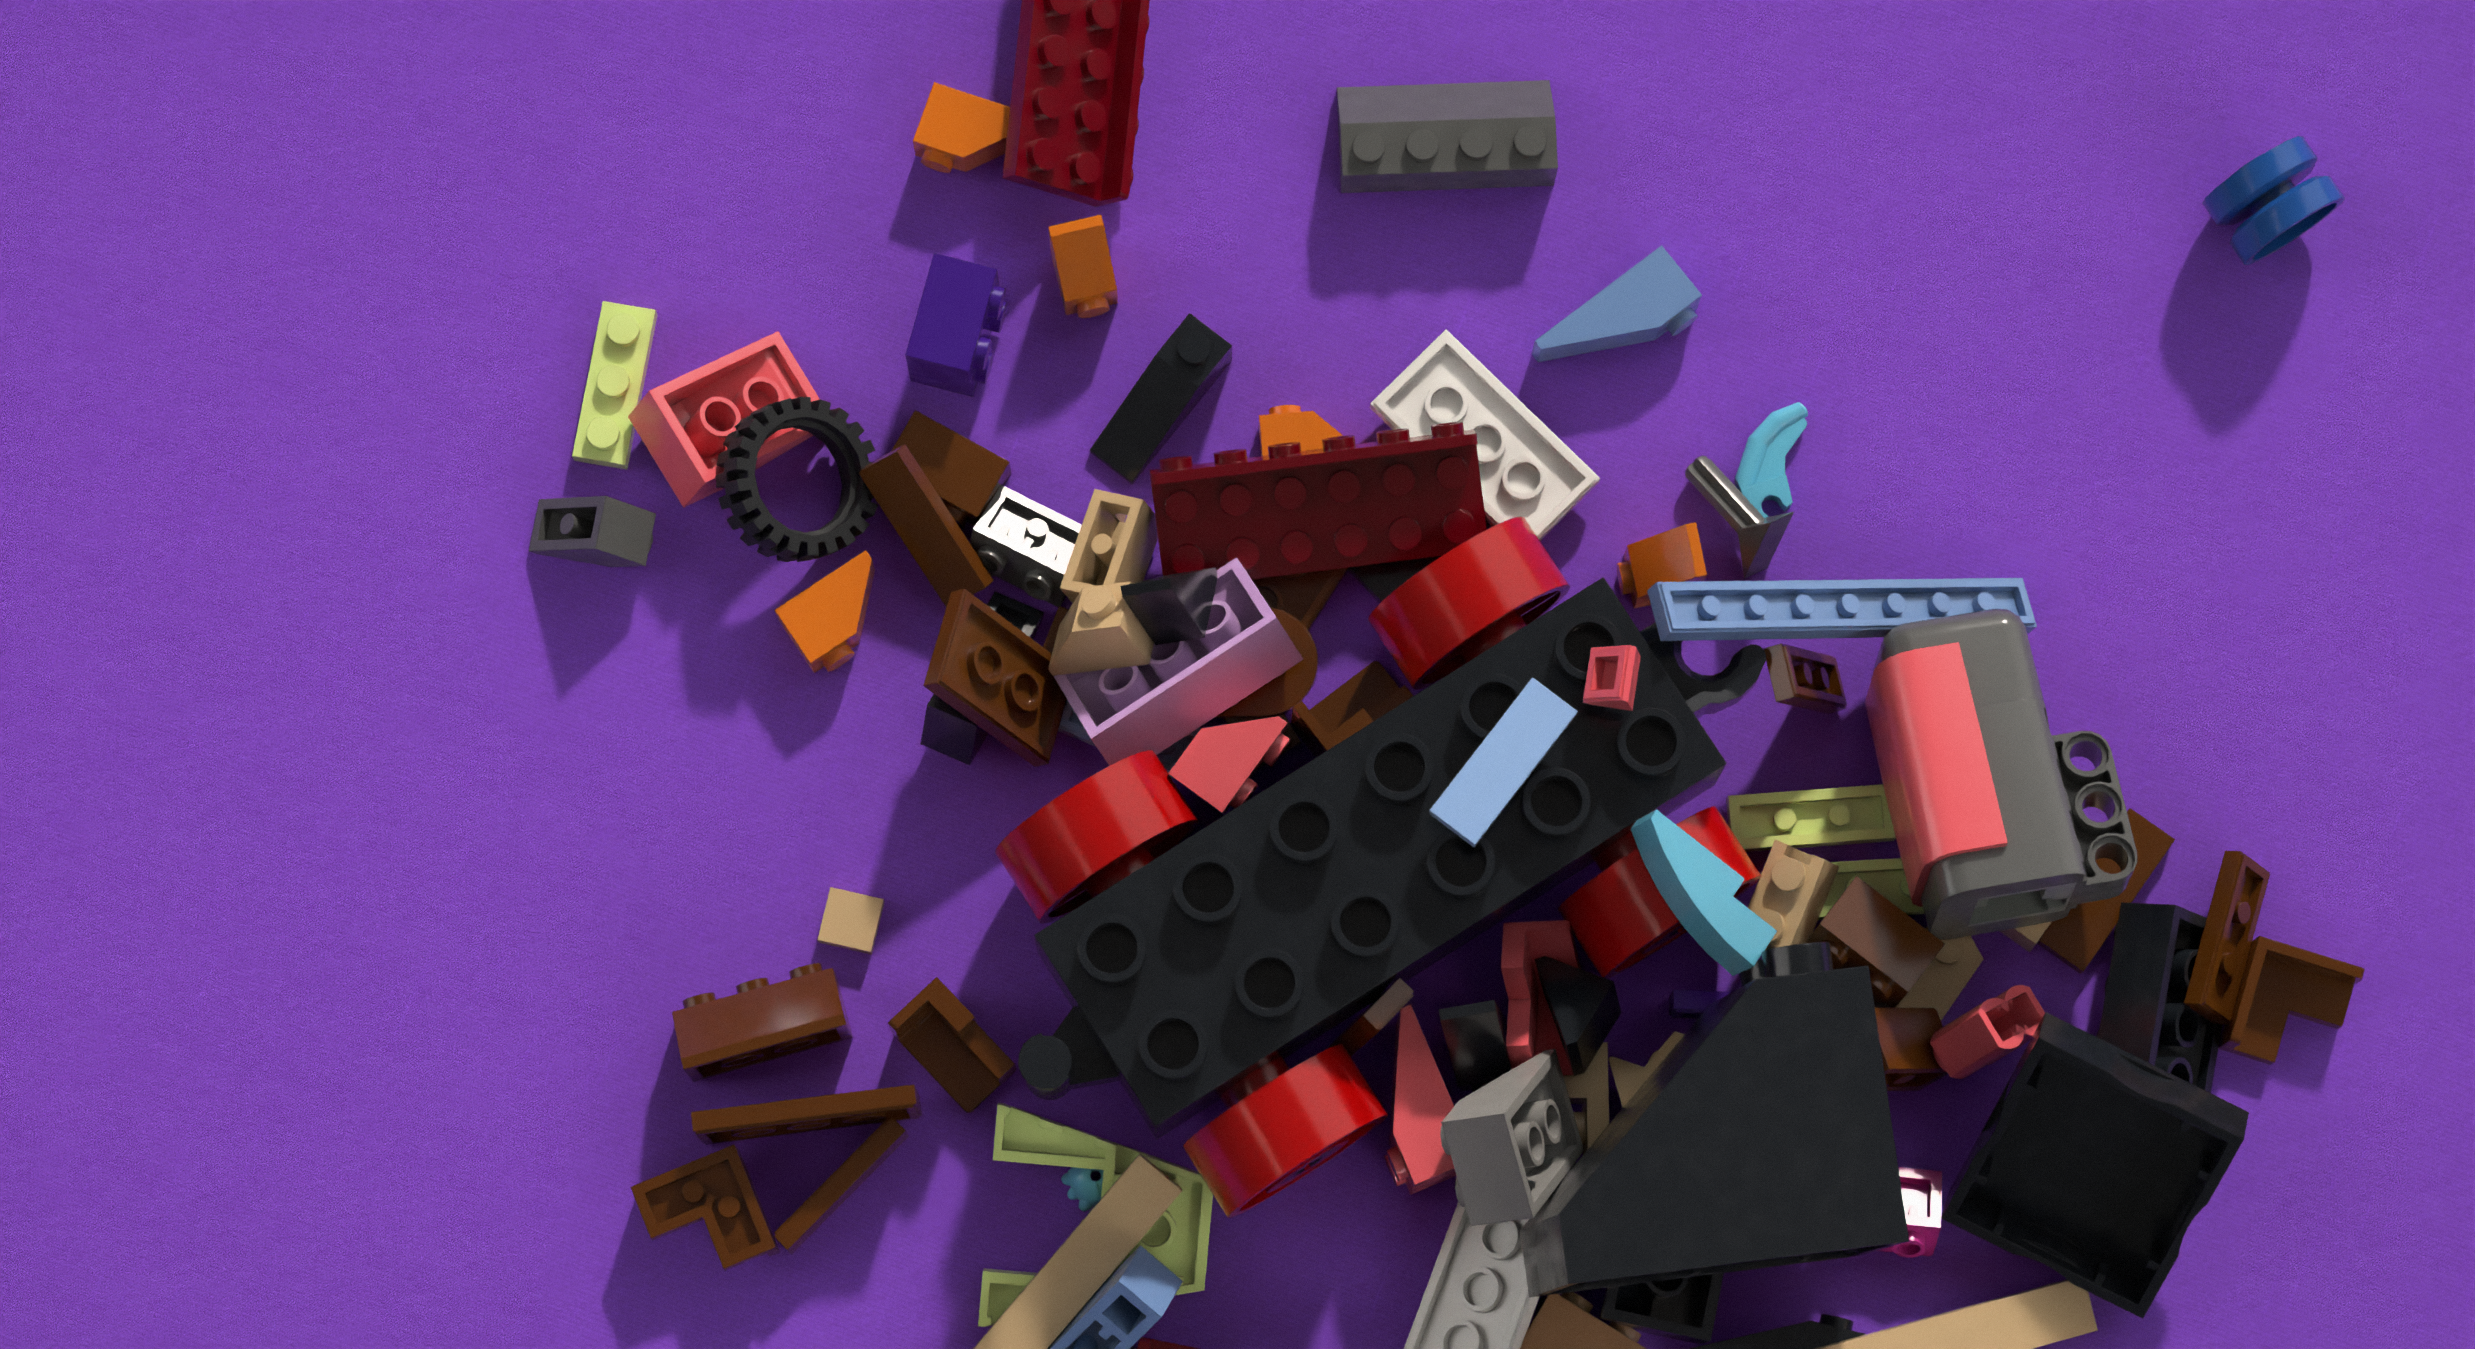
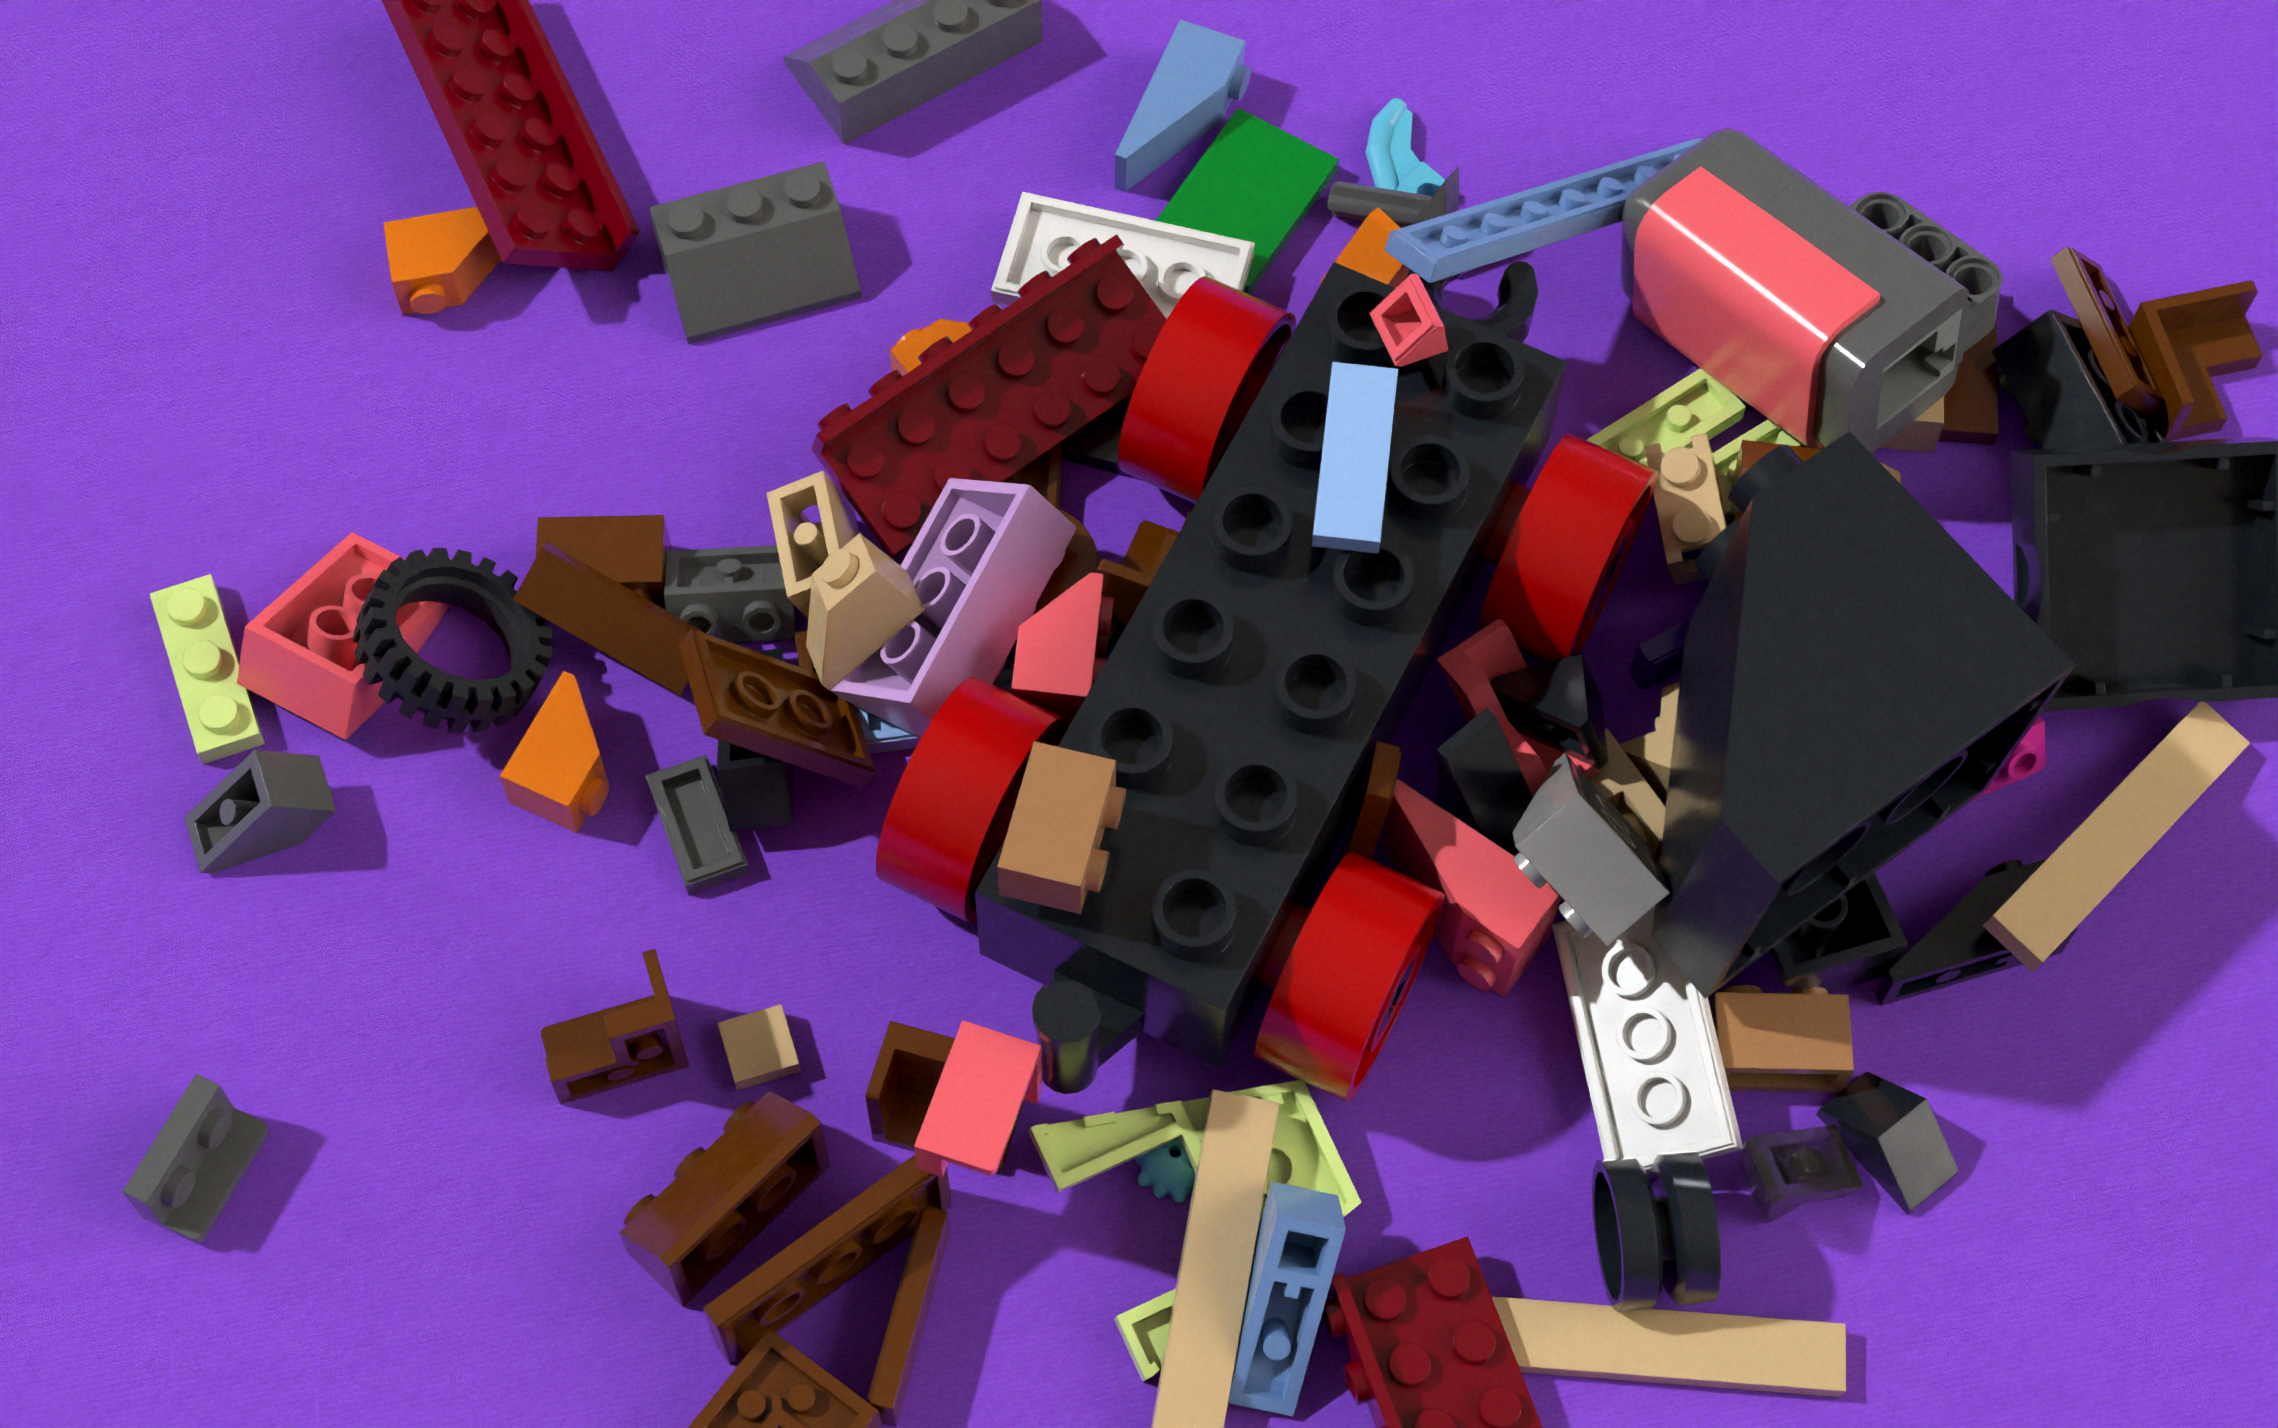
camera: 30 degrees left, 15 degrees down
(413, 784) = (195, 1161): none -> dark grey bracket
(750, 858) = (615, 1043): none -> reddish brown panel
(900, 721) = (697, 824): none -> dark grey tile
(954, 325) = (535, 420): dark purple brick -> none
(955, 1081) = (978, 1100): none -> coral panel
(1083, 266) = (630, 307): orange slope -> none
(1108, 936) = (1058, 828): none -> medium nougat piece
(1162, 398) = (782, 389): black slope -> none
(1173, 605) = (913, 537): black slope -> none
(1209, 262) = (755, 252): none -> dark grey slope
(1631, 422) = (1252, 188): none -> green tile
(1701, 893) = (1627, 483): medium azure slope -> none
(1805, 678) = (1571, 297): tile -> none
(1987, 1032) = (1968, 507): coral brick -> none

